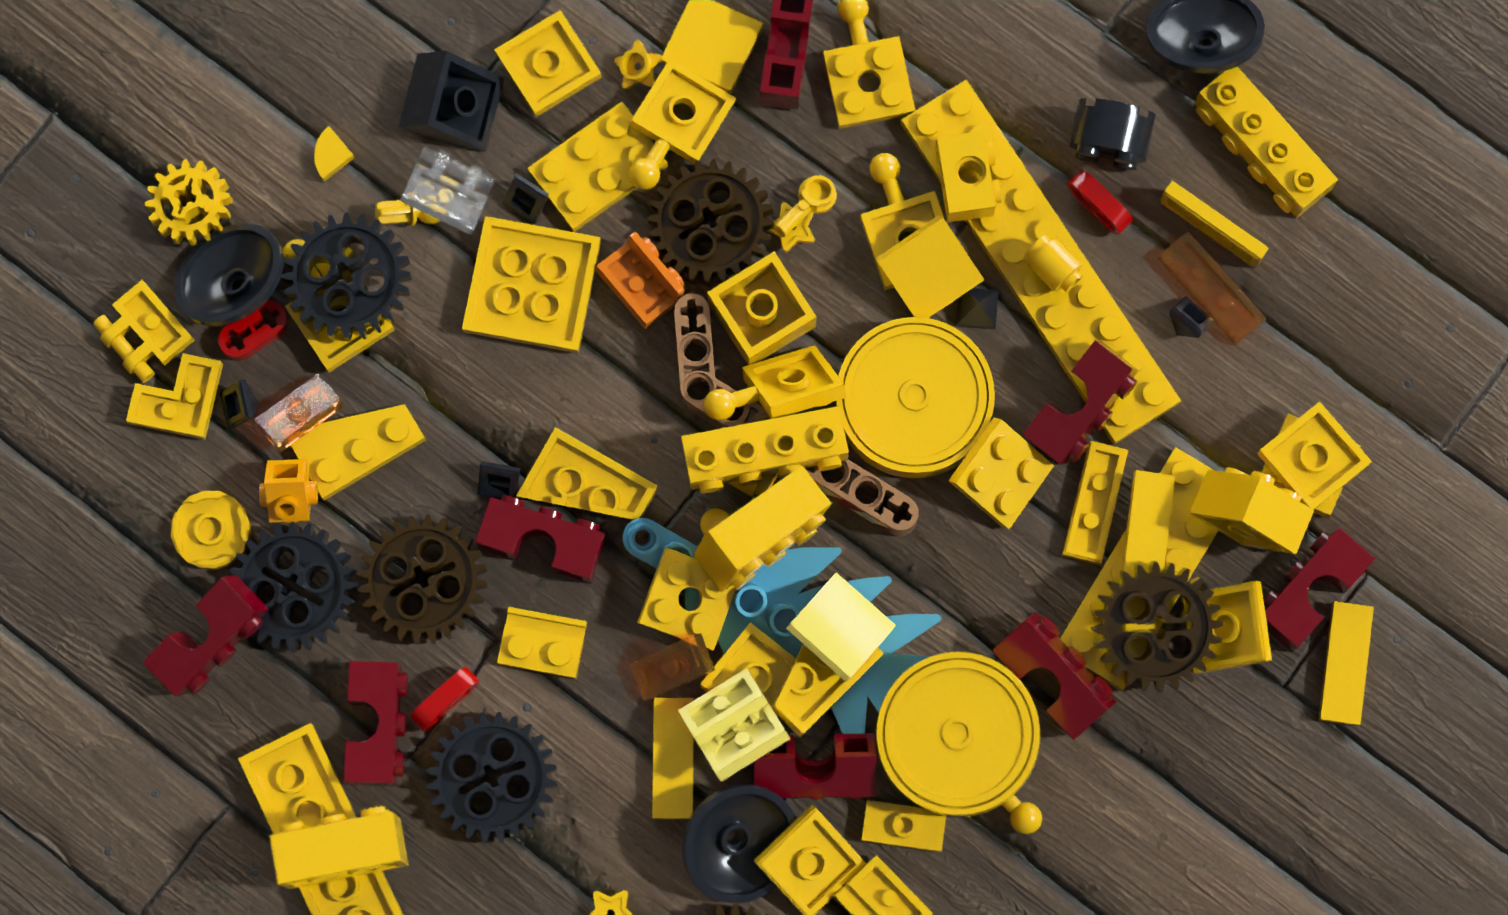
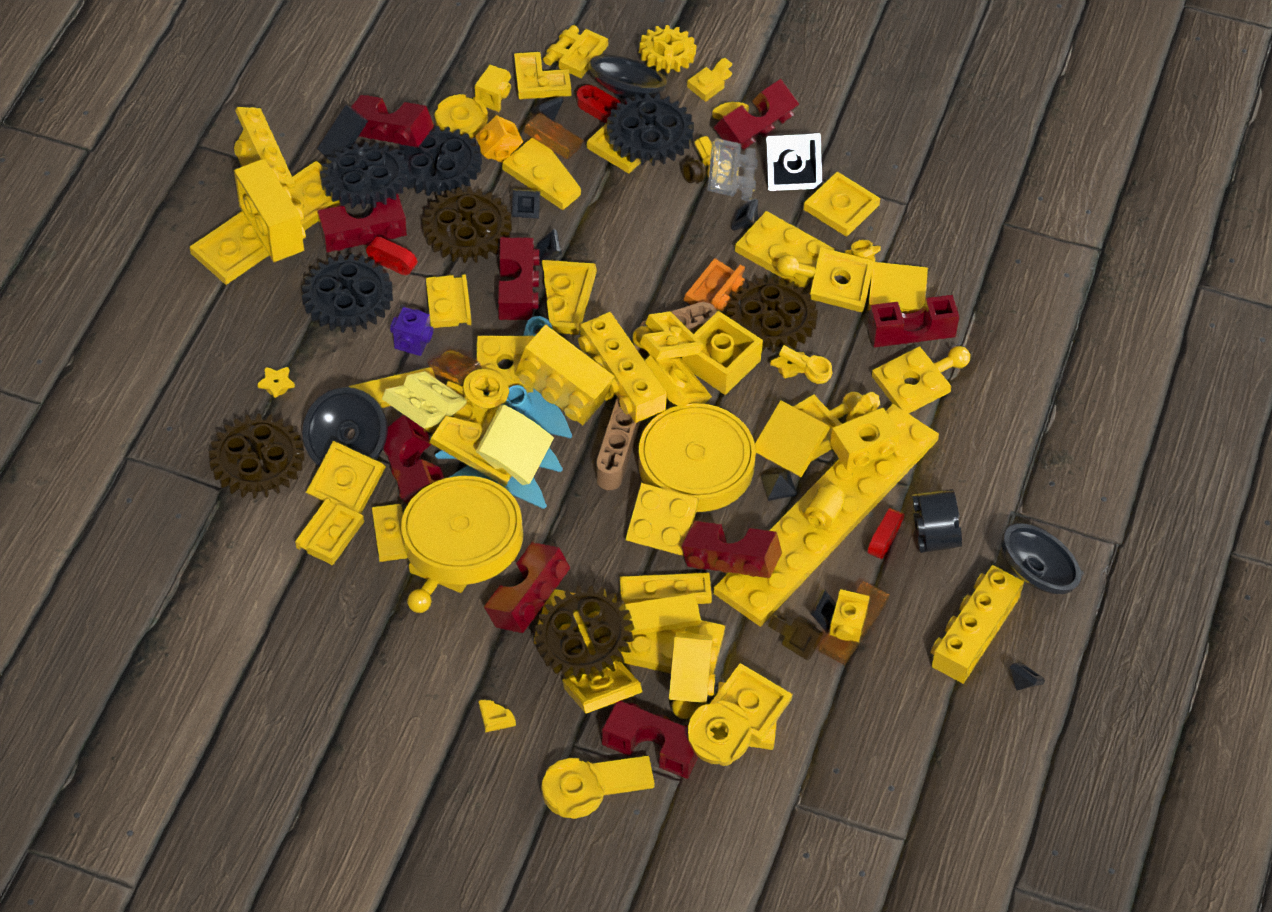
camera: 70 degrees right, 25 degrees down
(179, 468) = (493, 87): none -> yellow brick
(198, 834) = (259, 143): none -> yellow bracket
(207, 708) = (343, 132): none -> black tile
(262, 165) = (708, 82): none -> yellow plate
(337, 697) = (364, 175): none -> black gear
(353, 92) = (773, 104): none -> dark red arch
(409, 487) = (526, 203): none -> black slope
(424, 240) = (693, 171): none -> dark brown plate
(531, 284) = (687, 232): yellow plate -> none
(602, 718) = (411, 331): none -> dark purple brick
(747, 363) = (669, 338): none -> yellow plate
(754, 631) = (496, 386): none -> yellow gear
(915, 164) = (864, 405): none -> yellow gear
(1207, 298) = (849, 615): none -> yellow brick
(1213, 224) = (900, 606): yellow tile -> none
(1218, 771) = (495, 716): none -> yellow tile
(1219, 365) = (799, 636): none -> dark brown plate
(1352, 111) = (1025, 677): none -> black slope
(1358, 707) = (573, 788): none -> yellow tile
(1380, 508) = (714, 716): none -> yellow plate

